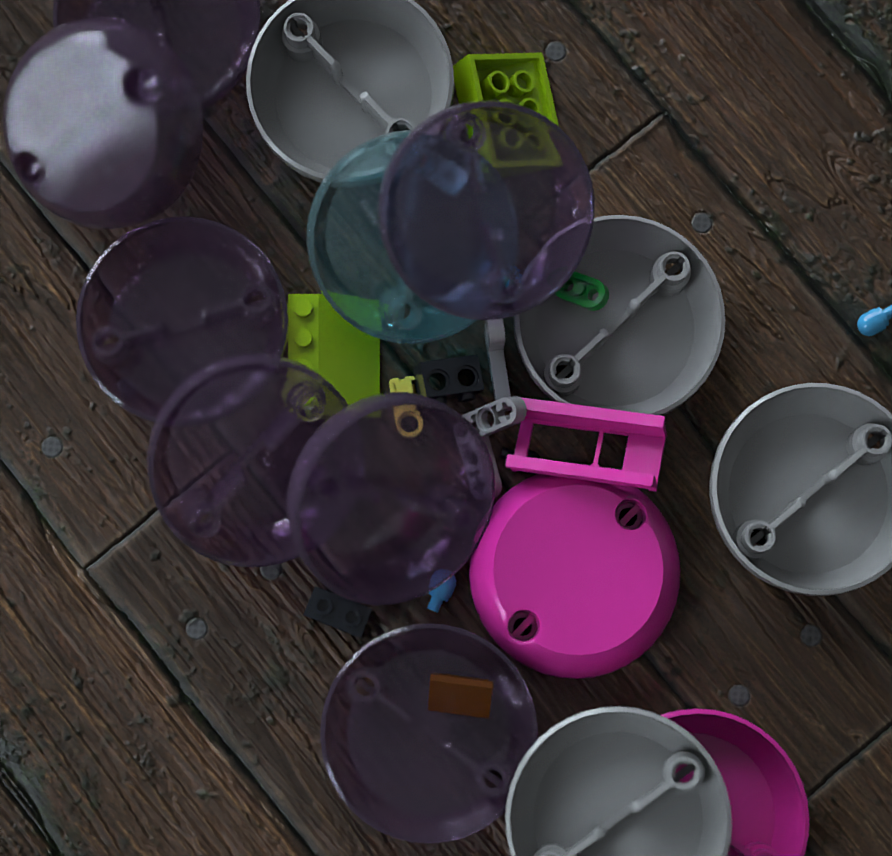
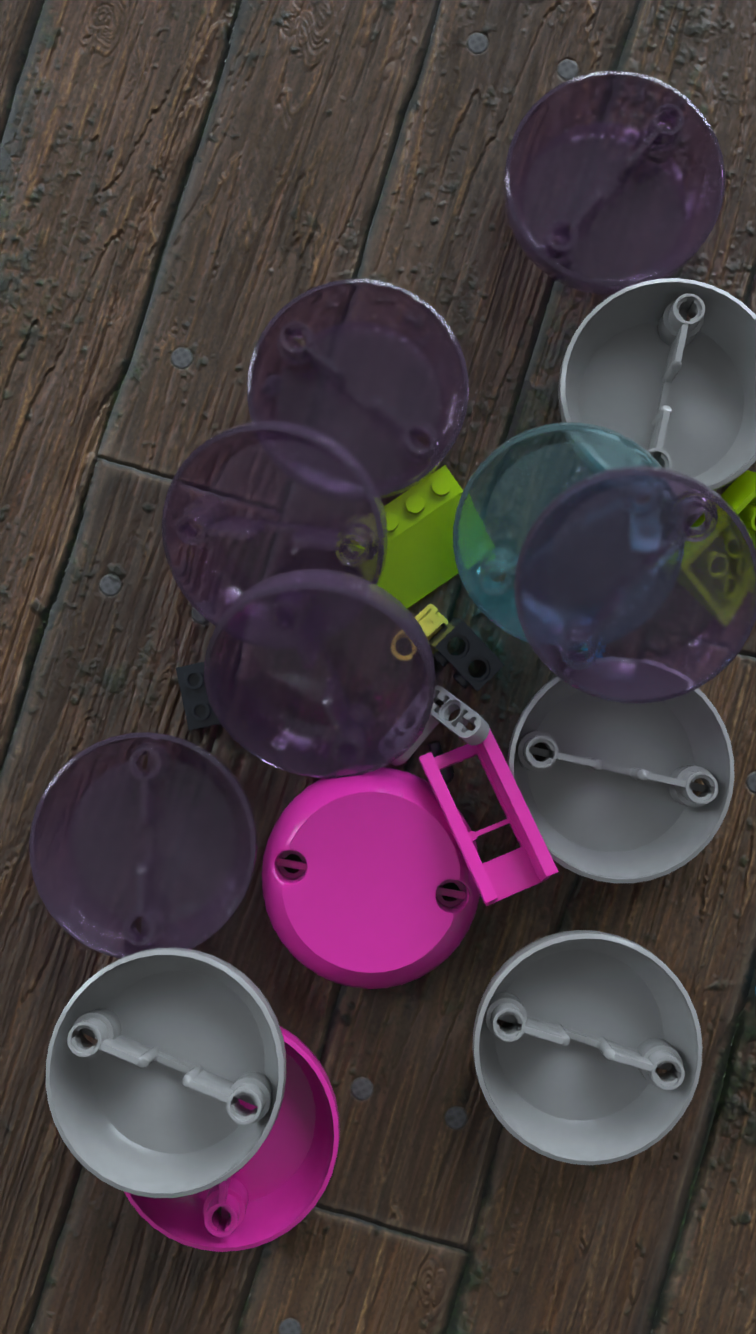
camera: 60 degrees right, 5 degrees up
(94, 128) = (485, 198): clear purple cylinder -> none
(441, 594) = (275, 774): dark azure cylinder -> none
(460, 695) = (198, 849): reddish brown slope -> none
(495, 342) = (524, 674): light grey beam -> none
(583, 291) = (624, 720): green plate -> none

